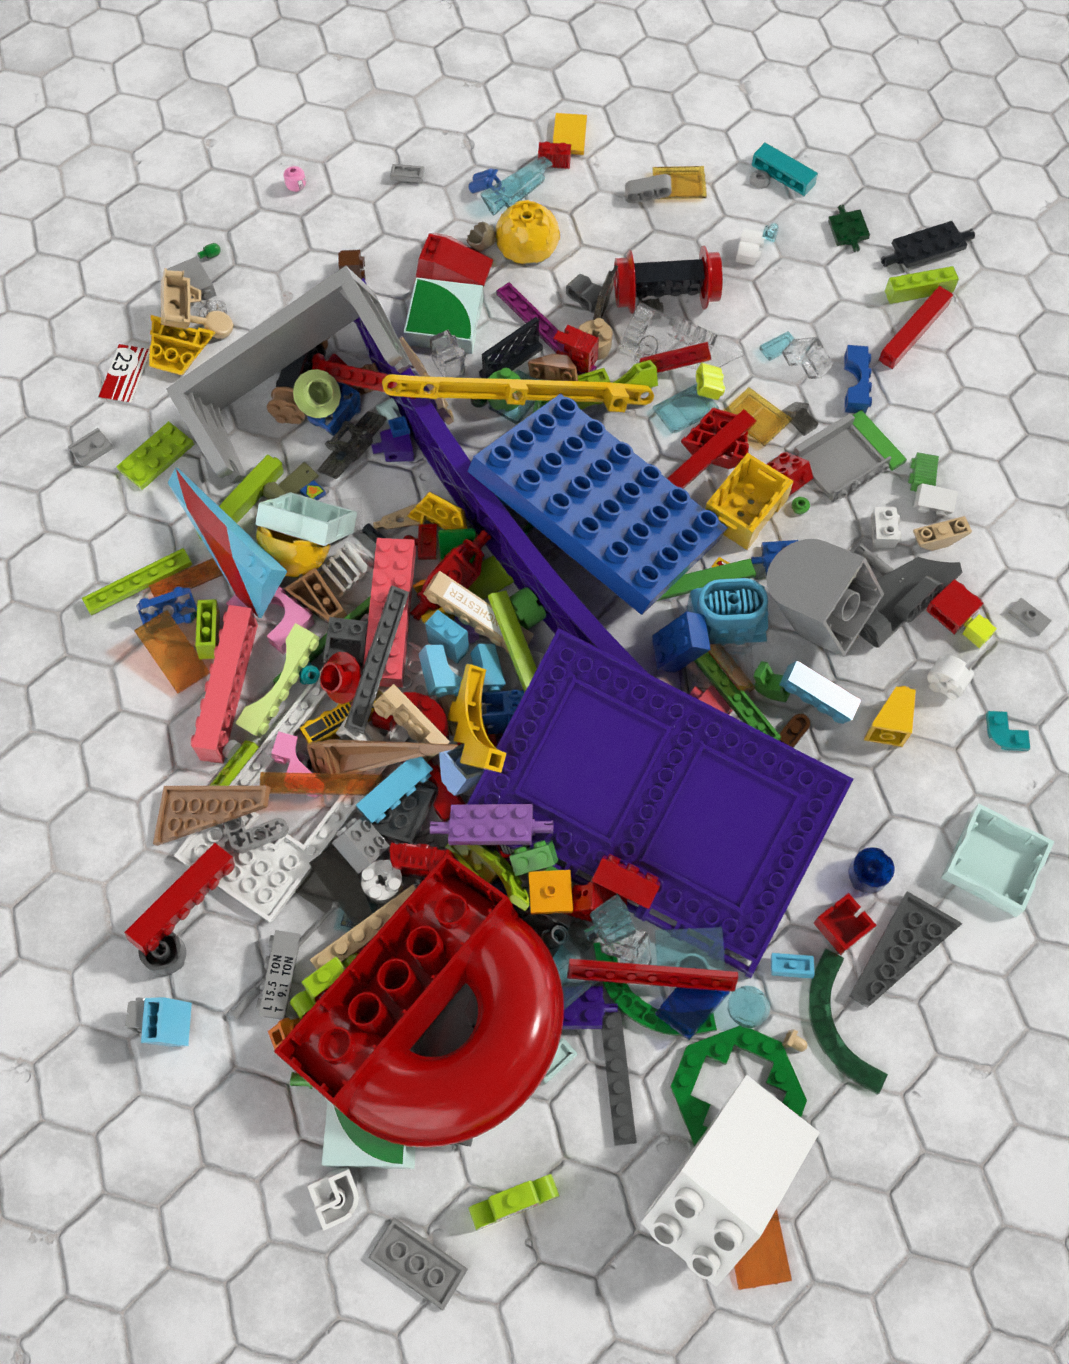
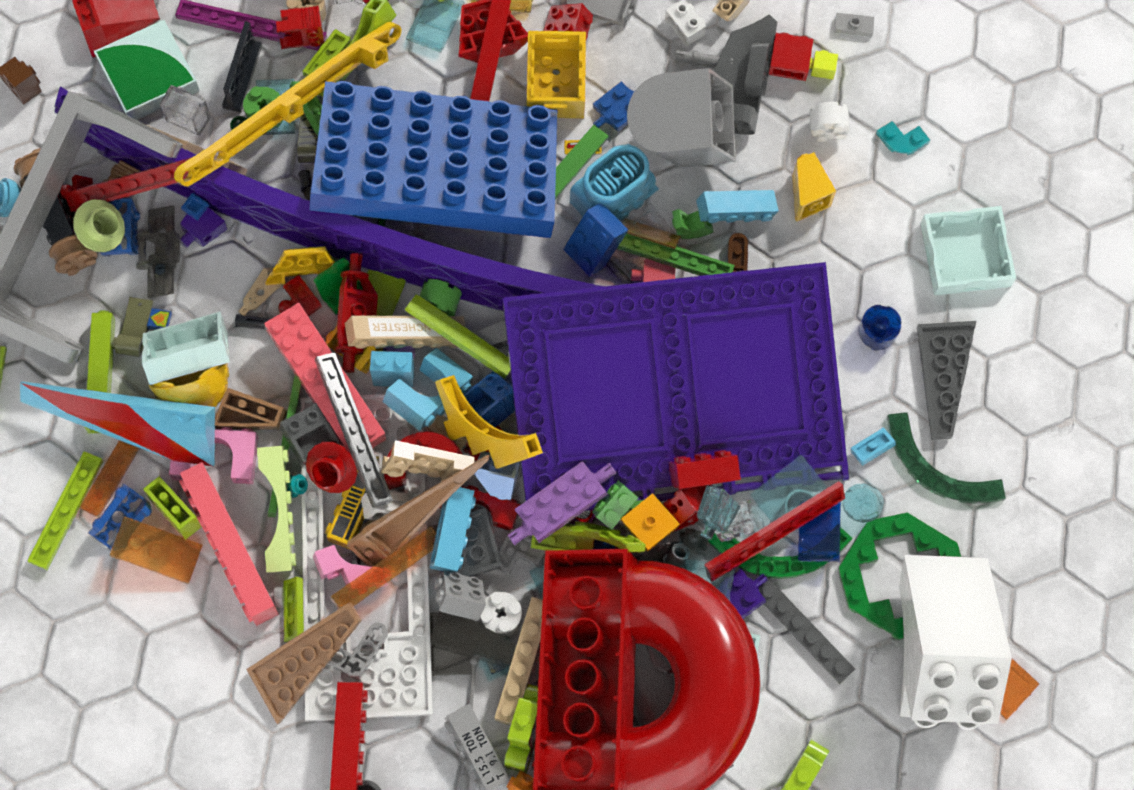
camera: 40 degrees left, 5 degrees up
(357, 560) = (254, 355): white plate -> none
(388, 409) = (170, 196): light aqua piece -> none
(416, 858) = (519, 572): red piece -> none
(553, 367) = (292, 58): nougat slope -> none
(794, 1041) = (915, 504): tan piece -> none
(798, 509) = (600, 52): bright green plate -> none
(841, 926) = (889, 388): red piece -> none

